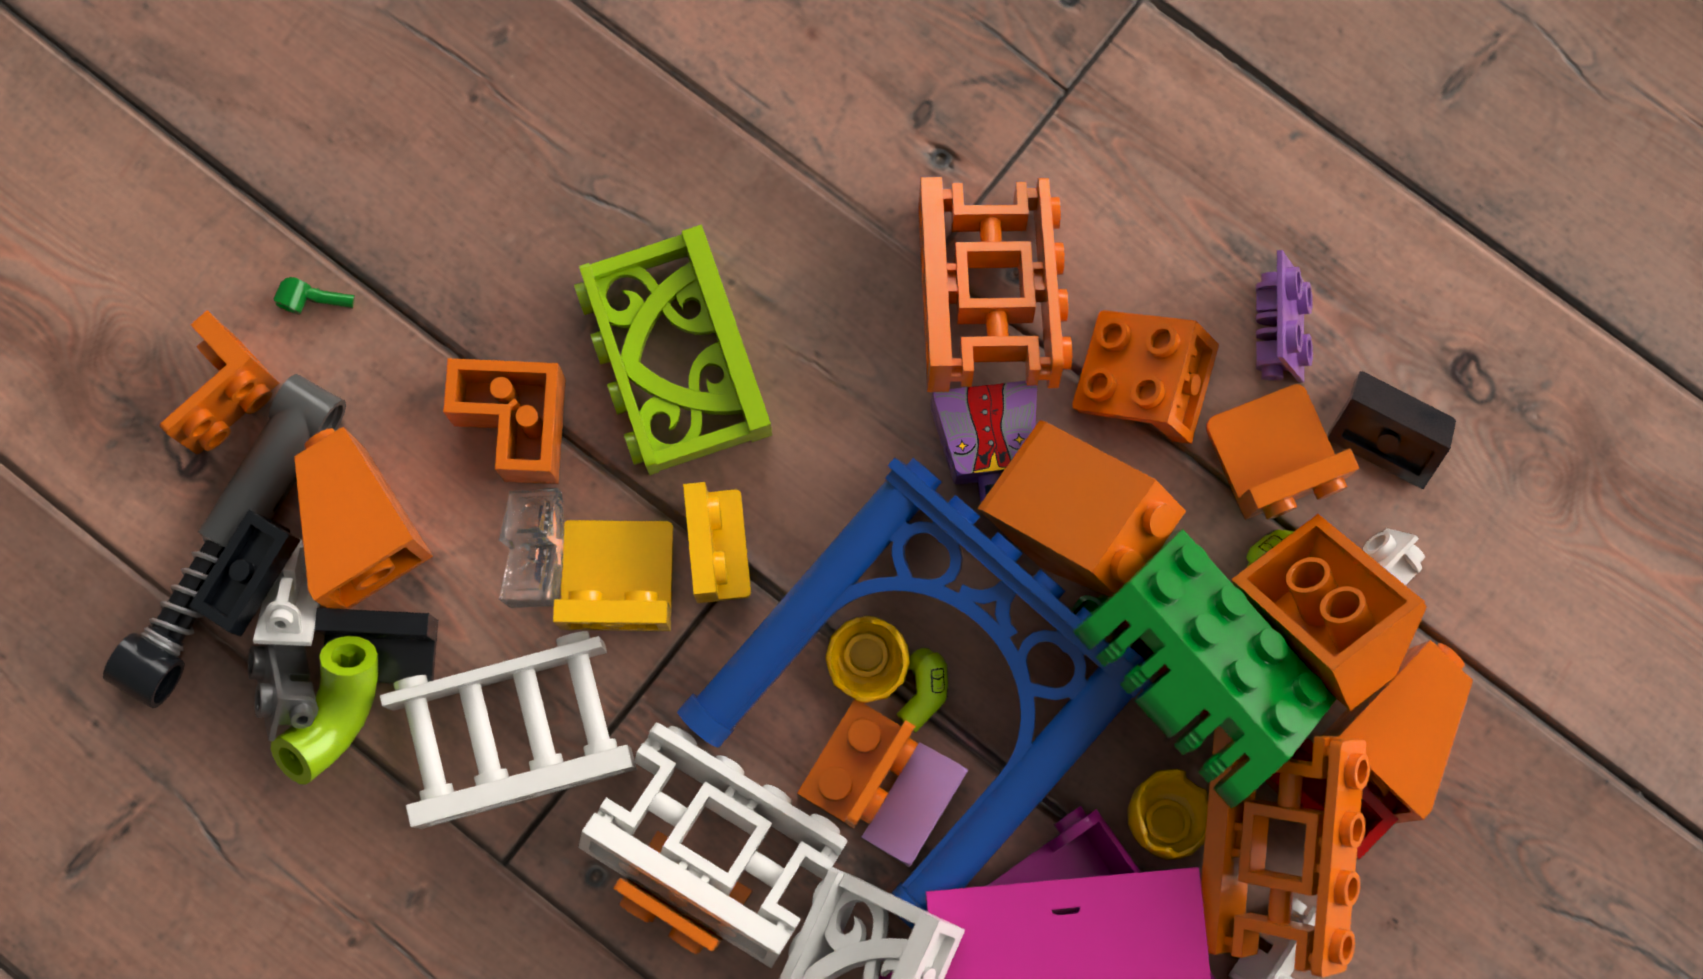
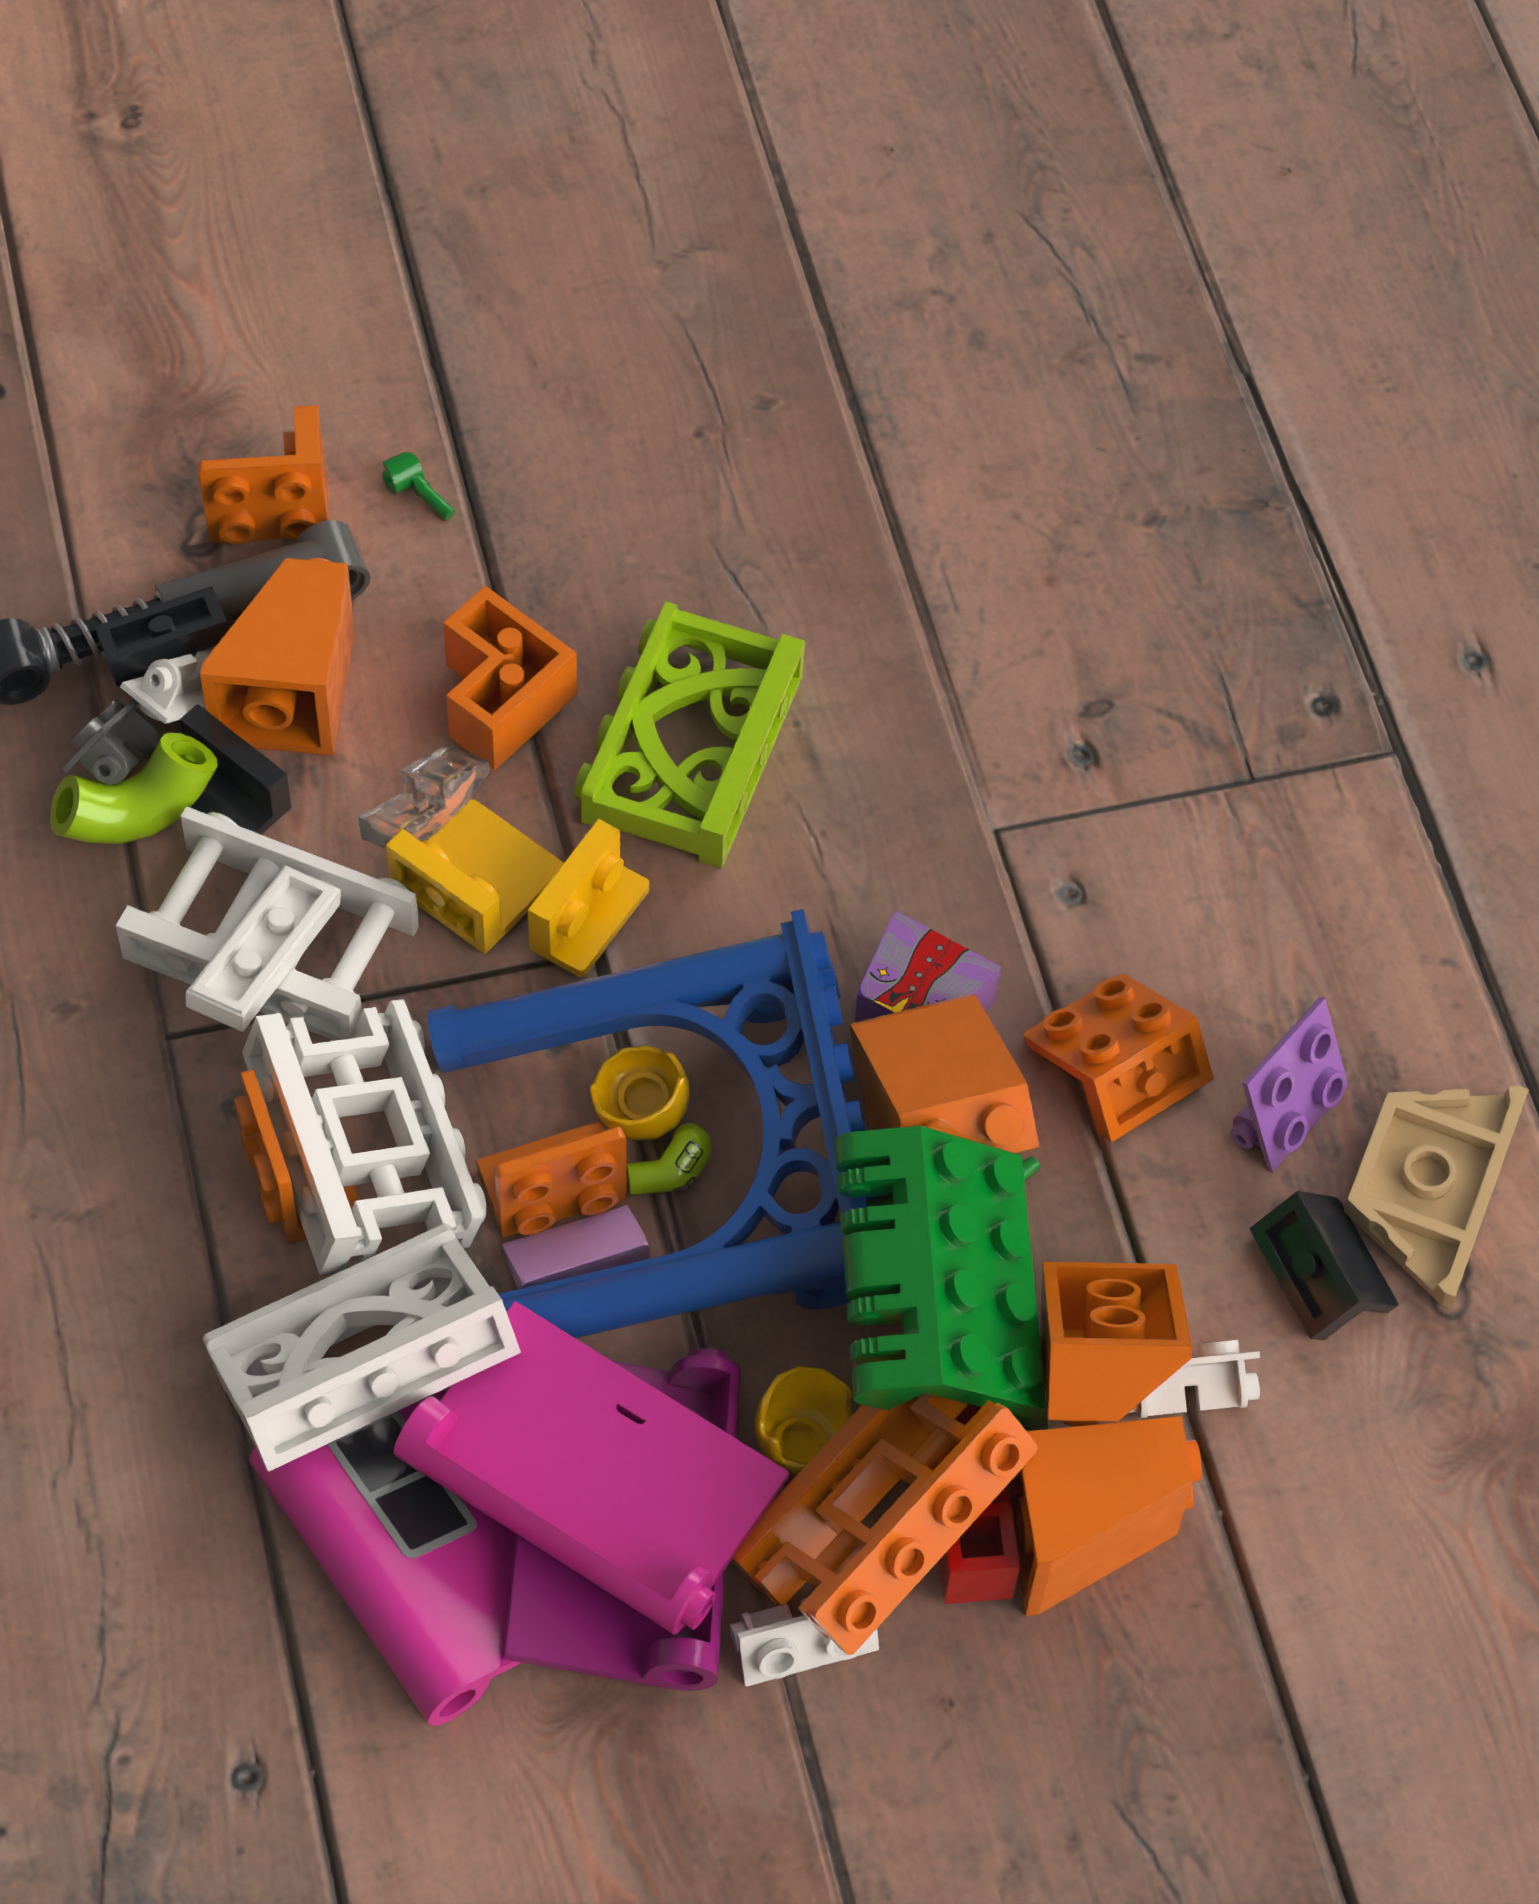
camera: 40 degrees right, 20 degrees down
(532, 765) = (263, 948): none -> white tile
(949, 284) = (992, 828): orange fence -> none
(1277, 453) = (1188, 1201): orange bracket -> none
(1414, 312) = (1432, 1179): none -> tan wing

